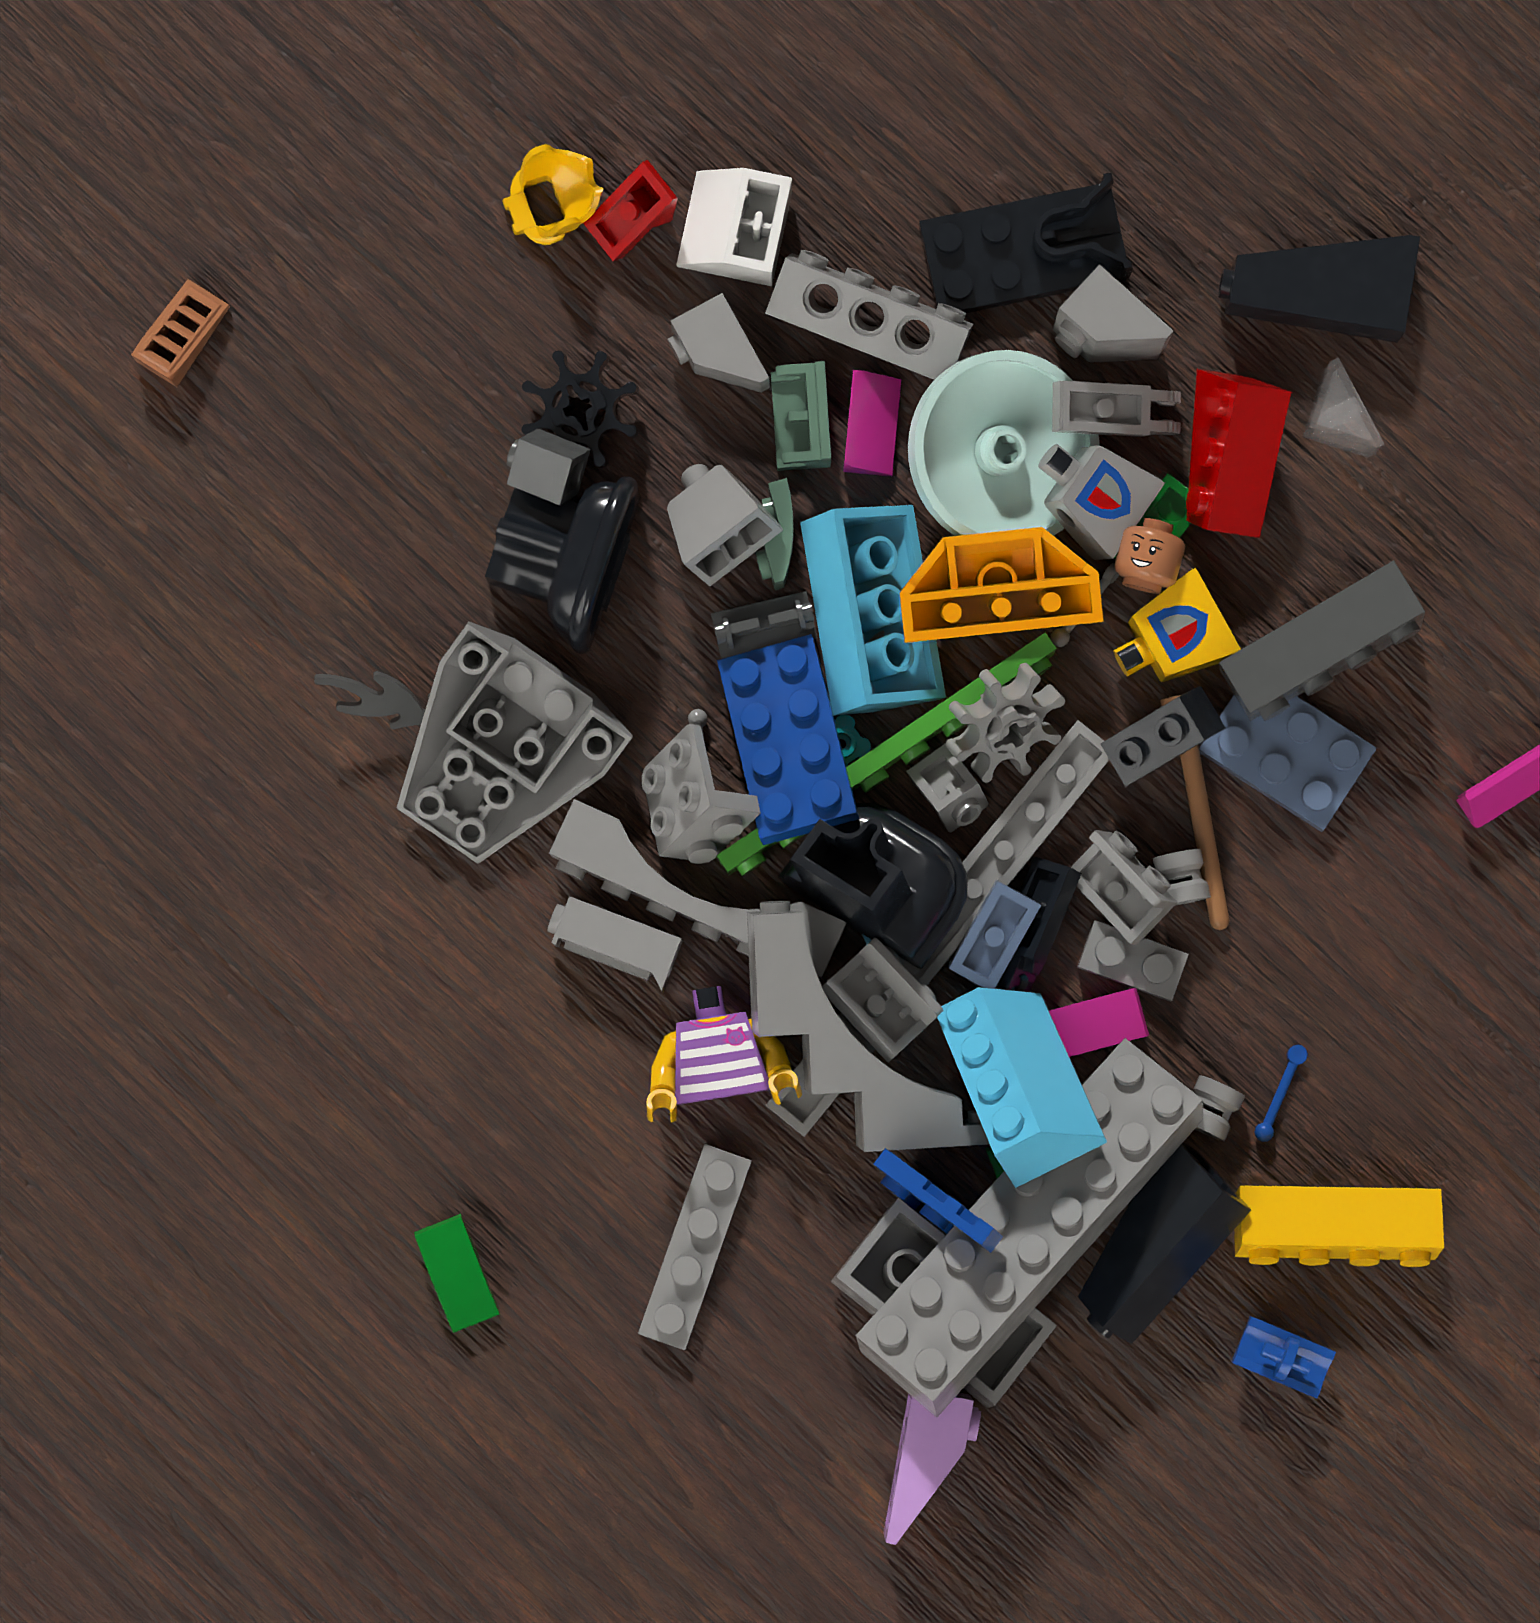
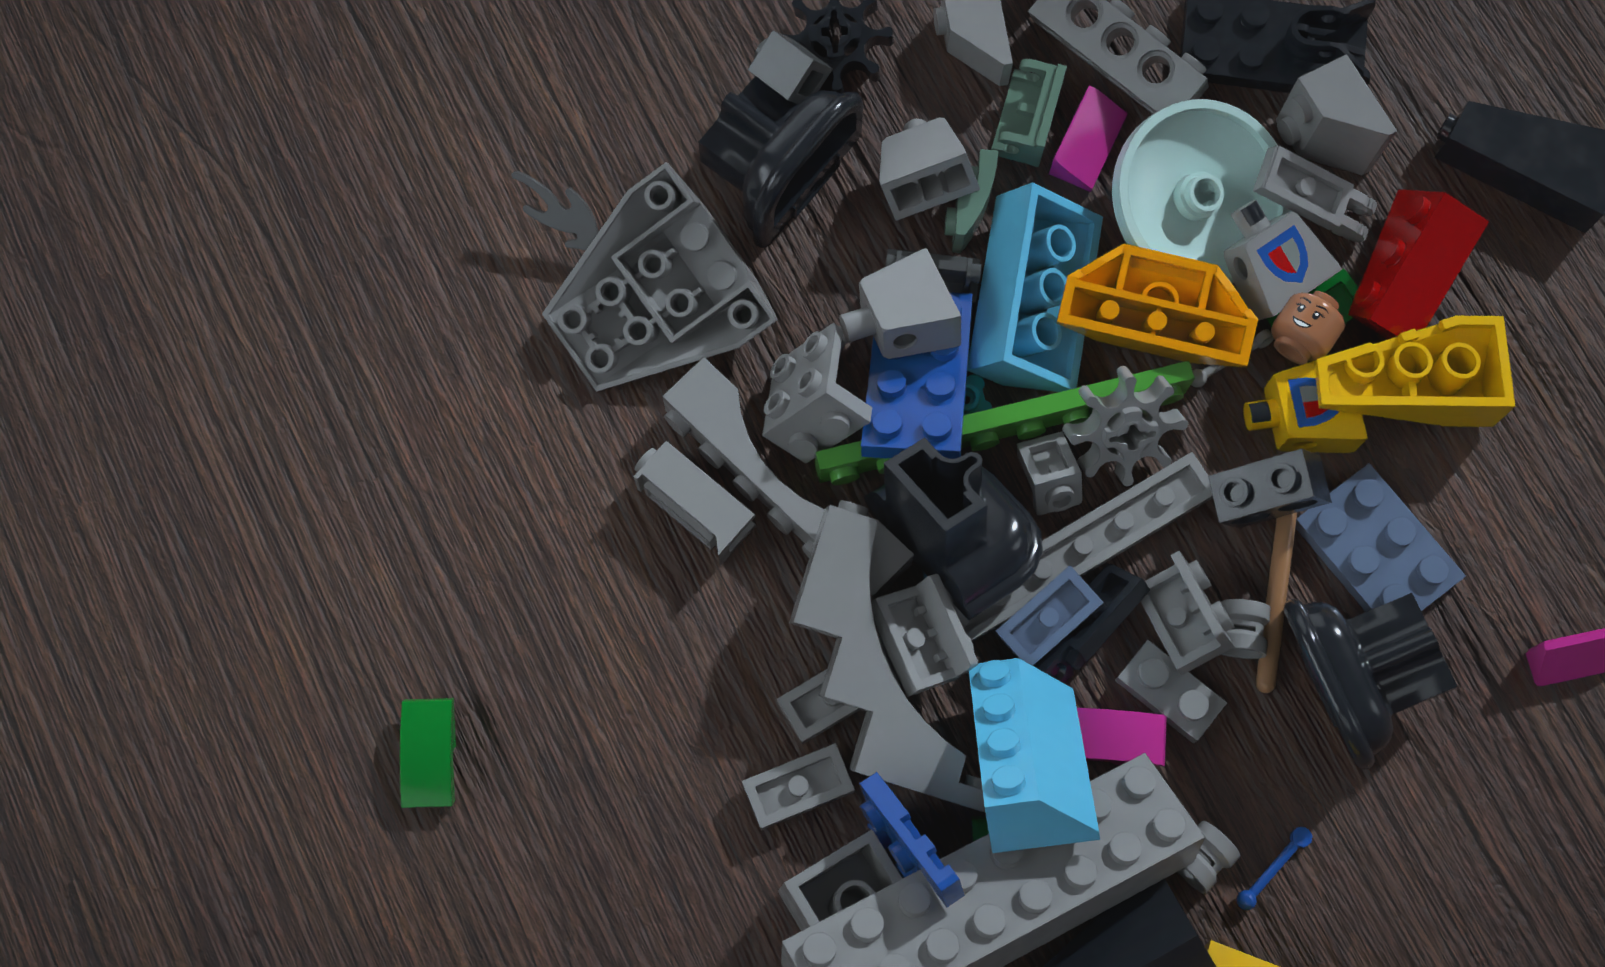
camera: 15 degrees right, 10 degrees down
(694, 1247) = (660, 811): light grey plate -> none
(716, 1059) = (746, 639): torso -> none
(753, 684) = (905, 309): none -> light grey torso
(815, 1179) = (798, 786): none -> light grey plate
(1281, 562) = (1429, 376): none -> yellow wedge
(1305, 880) = (1369, 667): none -> black piece
(1323, 643) = (1452, 455): dark grey wedge -> none
(1340, 416) = (1521, 273): clear slope -> none

